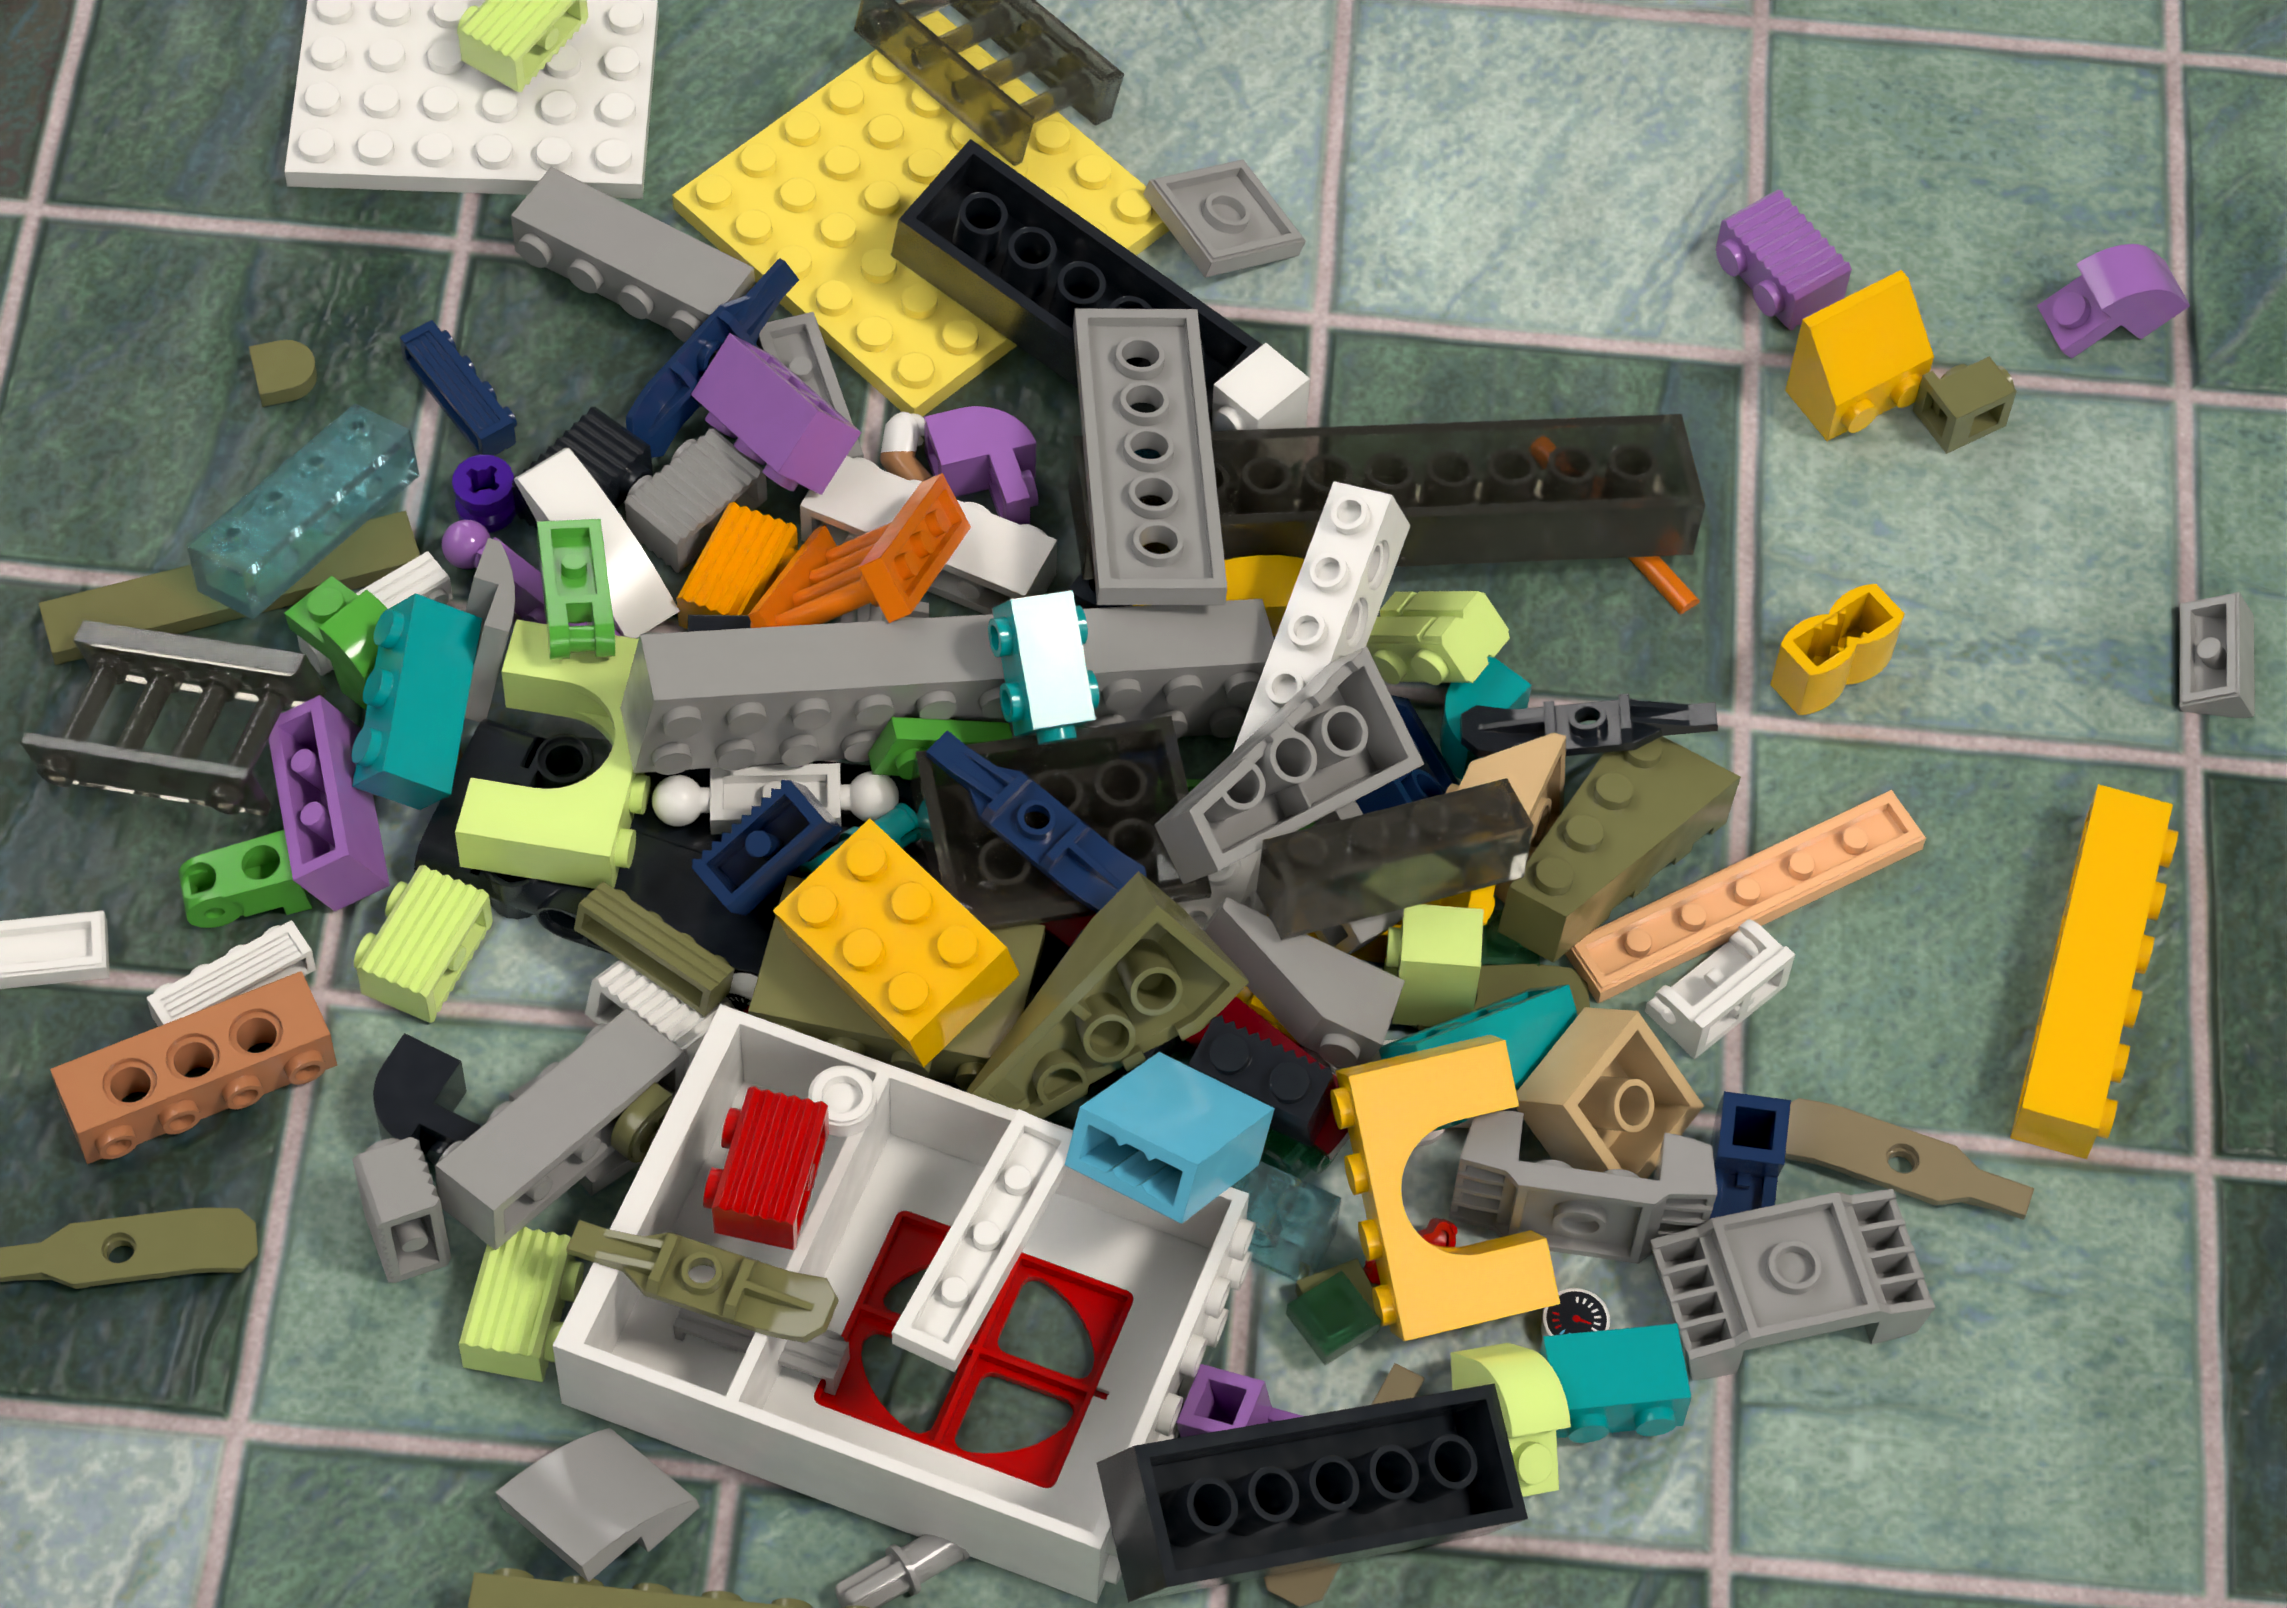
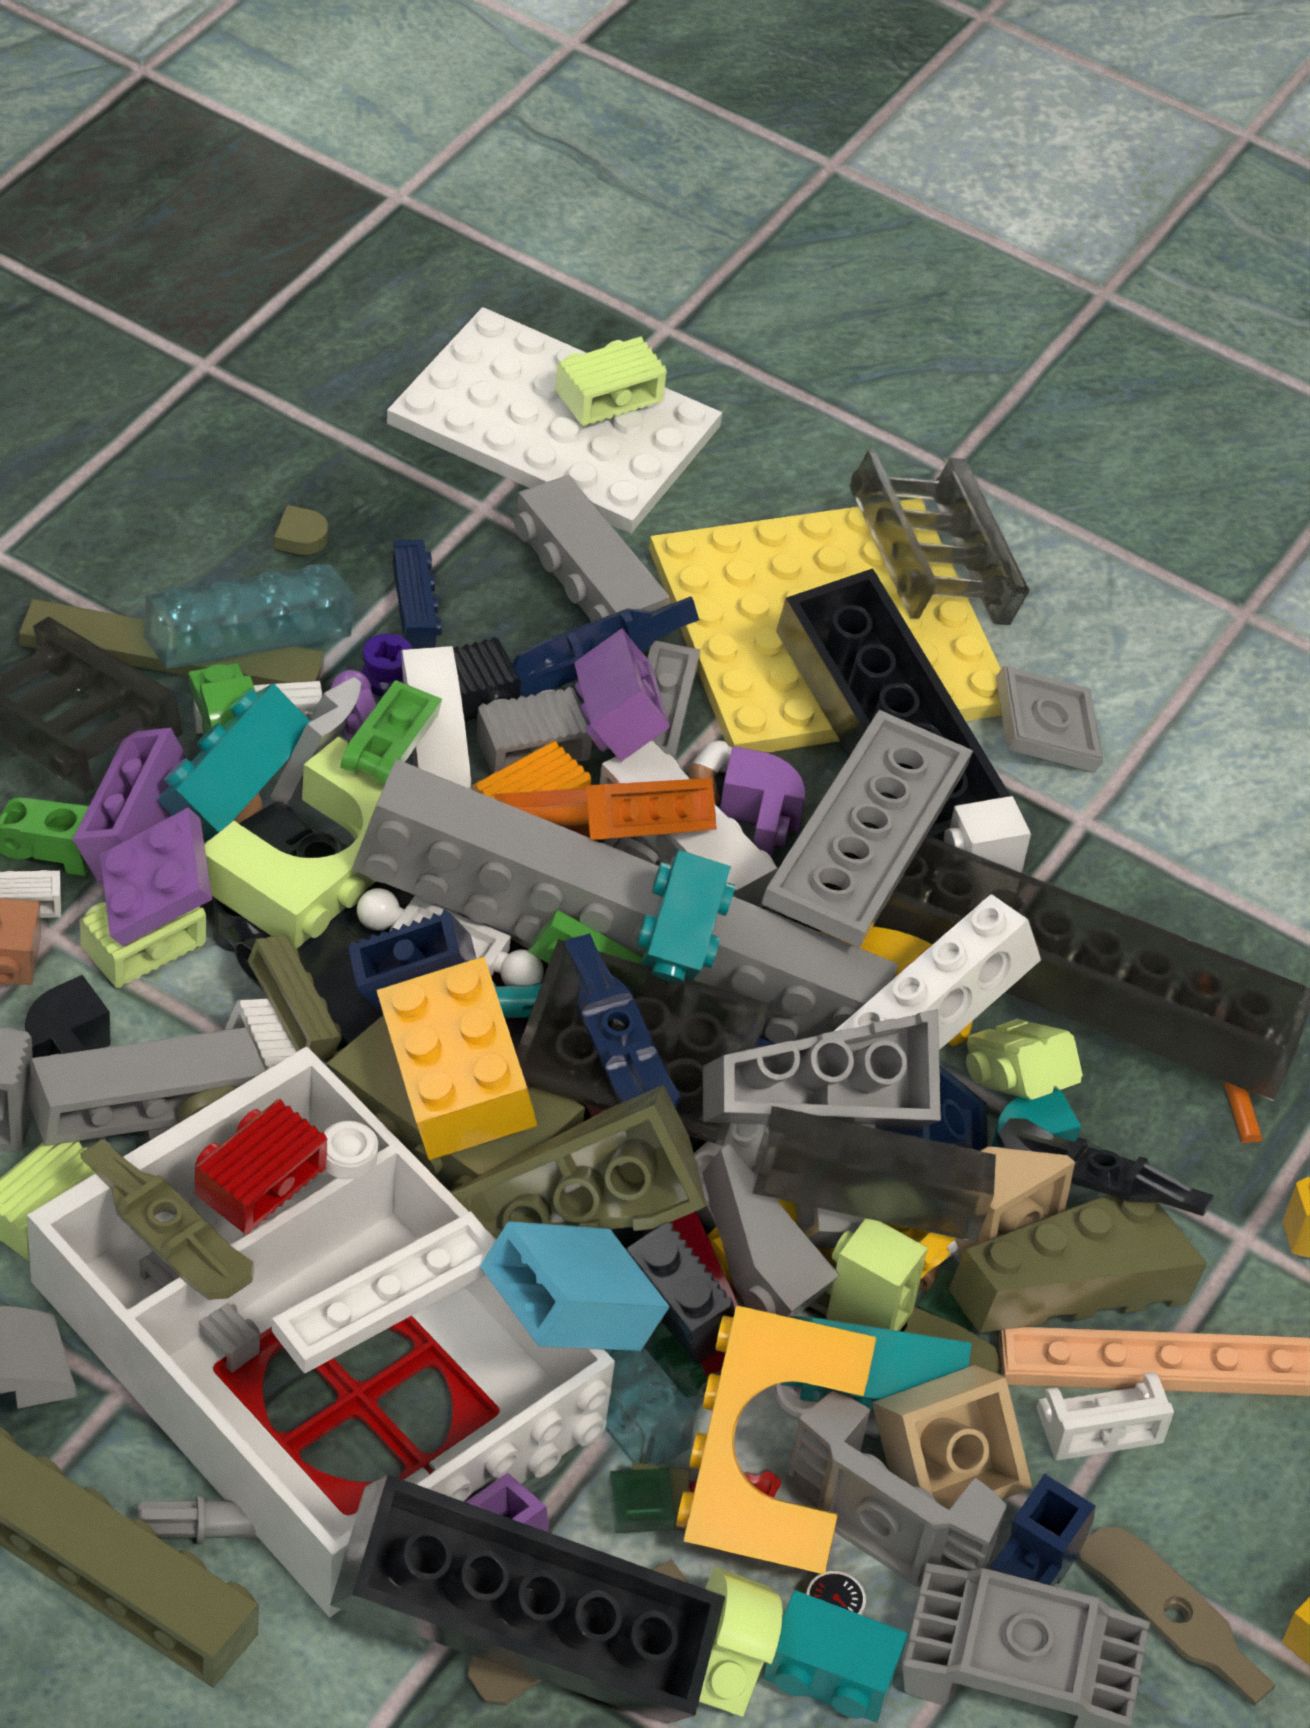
camera: 25 degrees right, 10 degrees down
(423, 884) = (155, 877): none -> medium lavender plate

